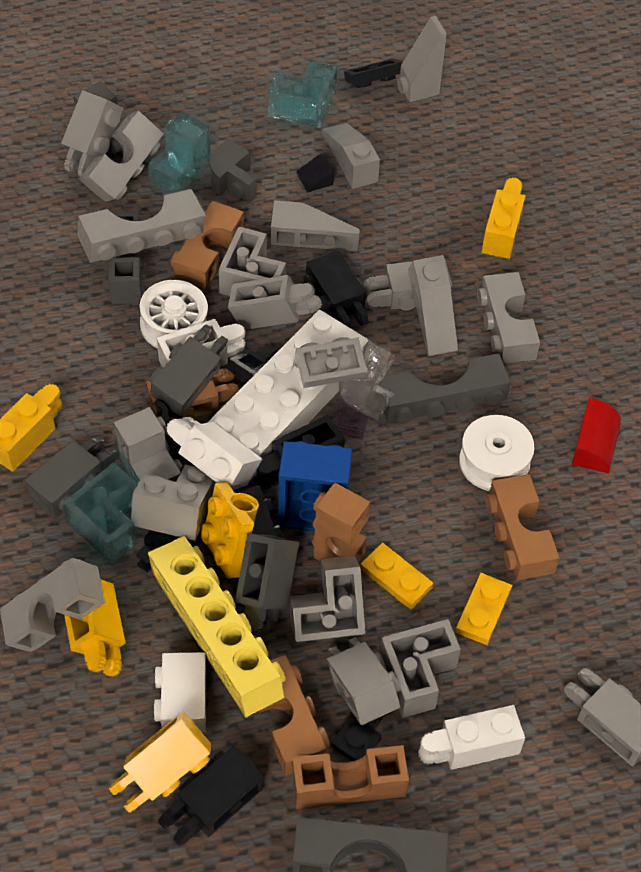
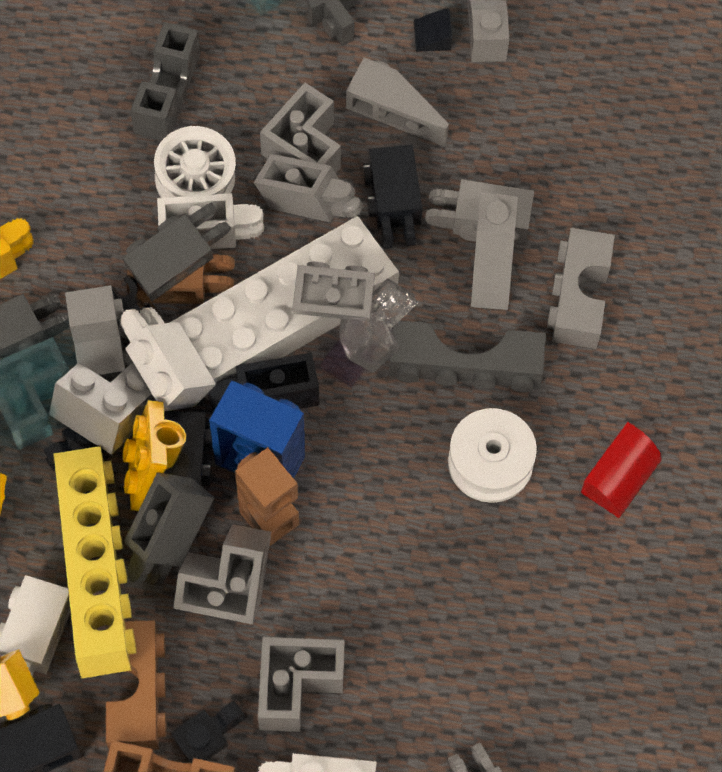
camera: 20 degrees right, 10 degrees up
(109, 236) = (147, 56): light grey arch -> none
(194, 260) = (285, 70): medium nougat arch -> none
(248, 362) = (255, 256): black plate -> none
(363, 681) = (226, 678): light grey hinge -> none
(396, 575) = (321, 564): yellow plate -> none
(483, 609) = (402, 635): yellow plate -> none
(504, 220) = (631, 159): yellow hinge -> none
(527, 551) = (480, 587): medium nougat arch -> none

